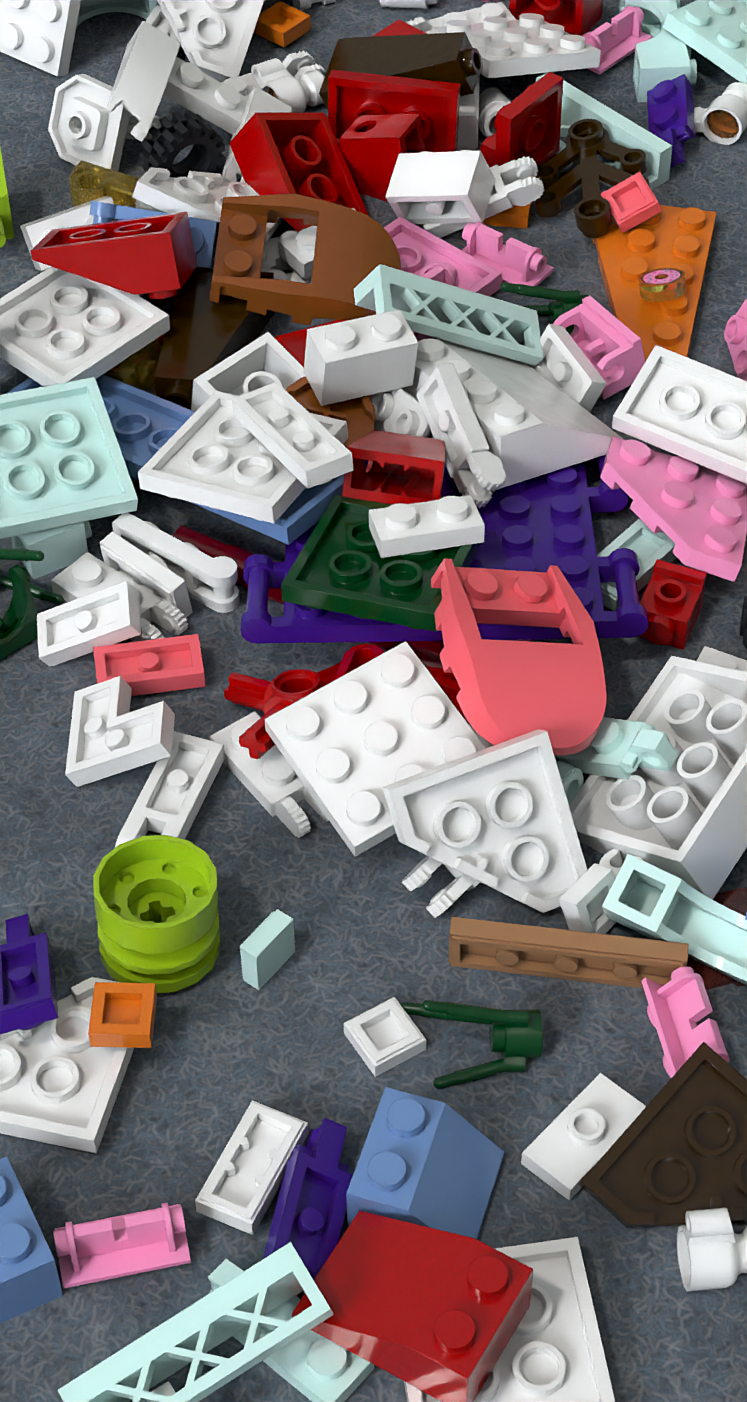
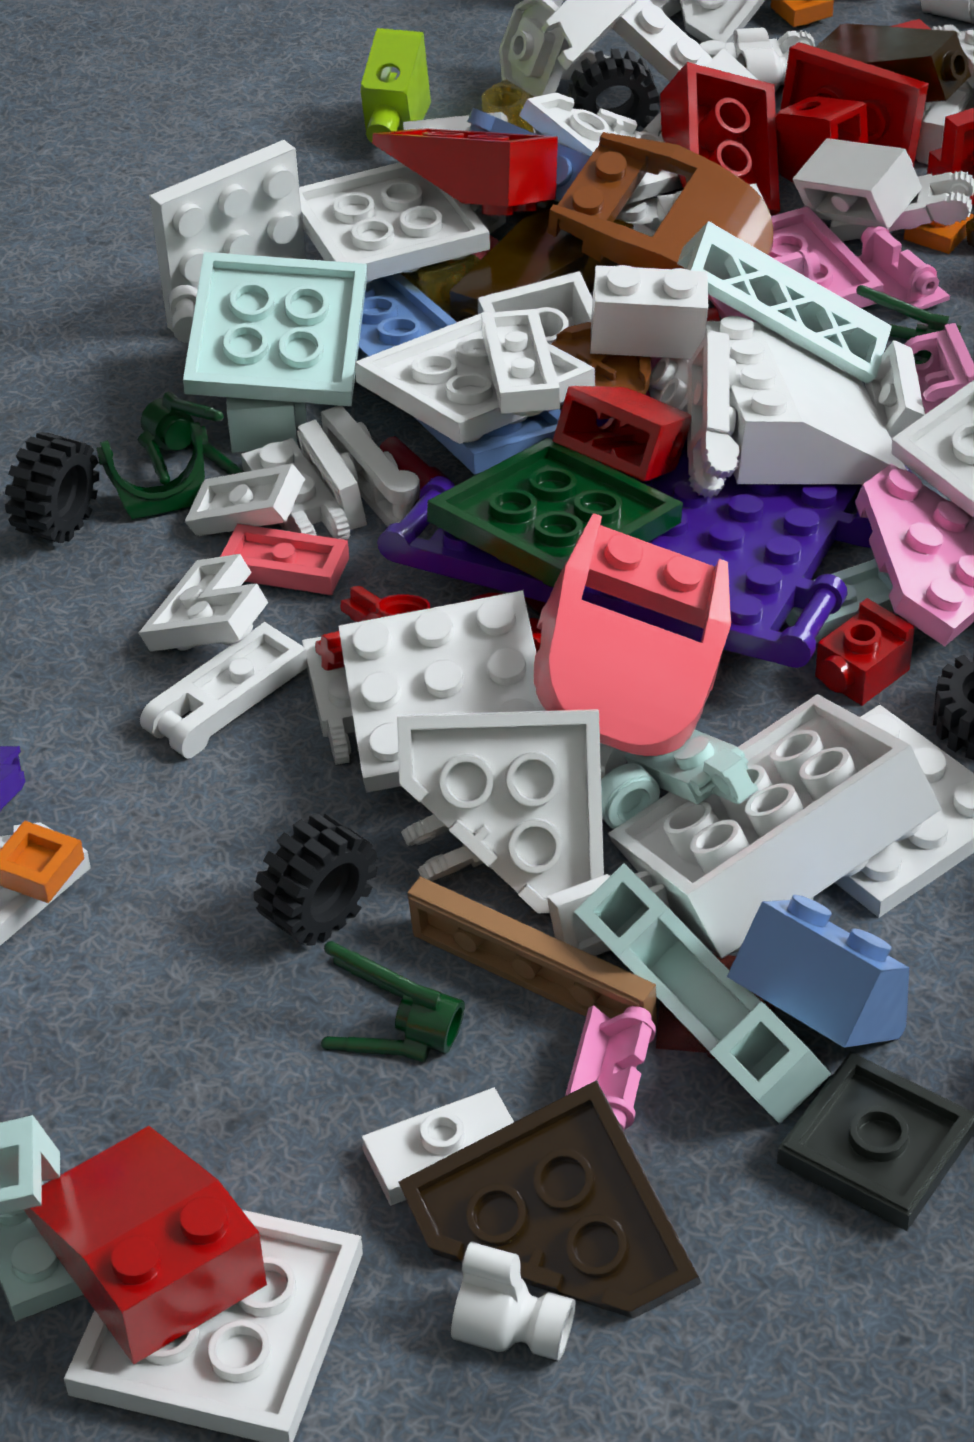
camera: 25 degrees right, 5 degrees down
(157, 912) = (130, 780): lime wheel -> none
(251, 1167) = (83, 1053): white plate -> none
(267, 949) = (227, 853): light aqua tile -> none
(312, 1198) = (118, 1100): dark purple hinge -> none
(364, 948) = (315, 879): none -> black tyre
(384, 1036) = (298, 979): white tile -> none
(424, 1166) = (246, 1114): medium blue slope -> none
(426, 526) = (613, 487): white plate -> none

